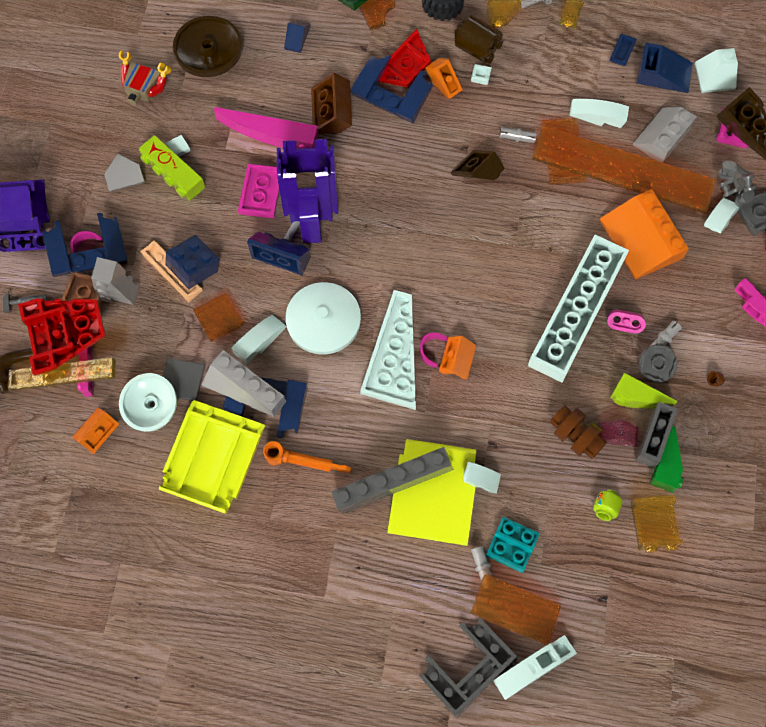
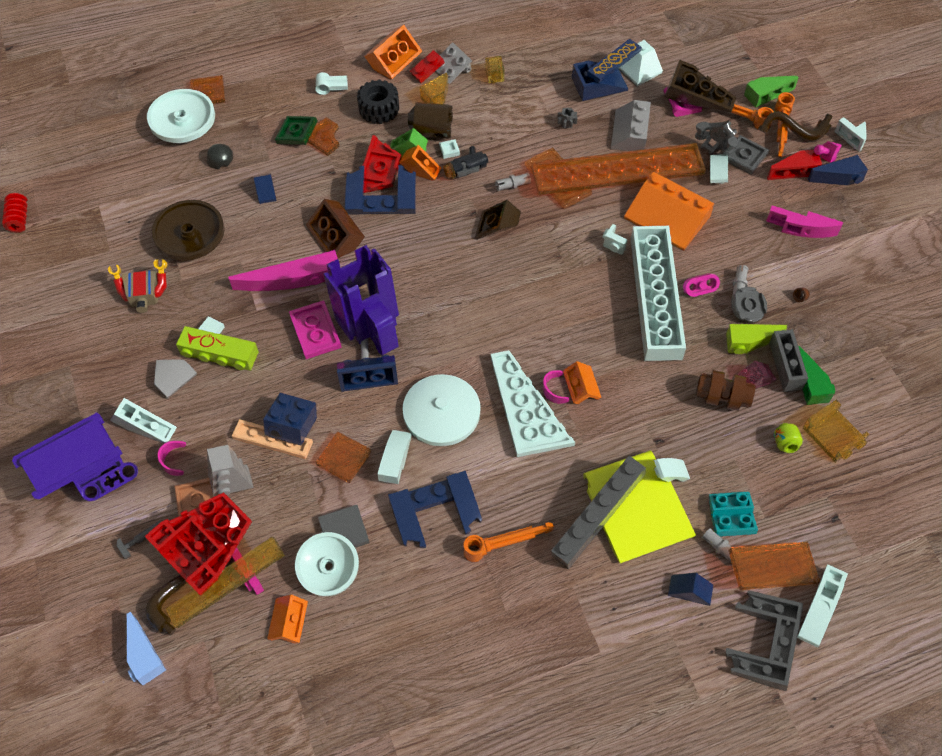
camera: 30 degrees left, 10 degrees down
(65, 264) = (162, 480): dark blue wedge -> none
(77, 203) = (142, 422): none -> light aqua slope
(211, 456) = (416, 583): neon yellow piece -> none
(236, 381) = (410, 500): light grey wedge -> none
(433, 588) = (691, 588): none -> dark blue slope
(446, 50) = (408, 140): none -> bright green slope
(485, 98) = (466, 164): none -> black piece
(571, 238) = (613, 241): none -> light aqua bracket
(599, 112) = (569, 133): light aqua slope -> none
(609, 93) = (567, 117): none -> dark grey gear
(623, 50) = (554, 80): dark blue tile -> none
(687, 57) = (614, 61): none -> dark blue tile

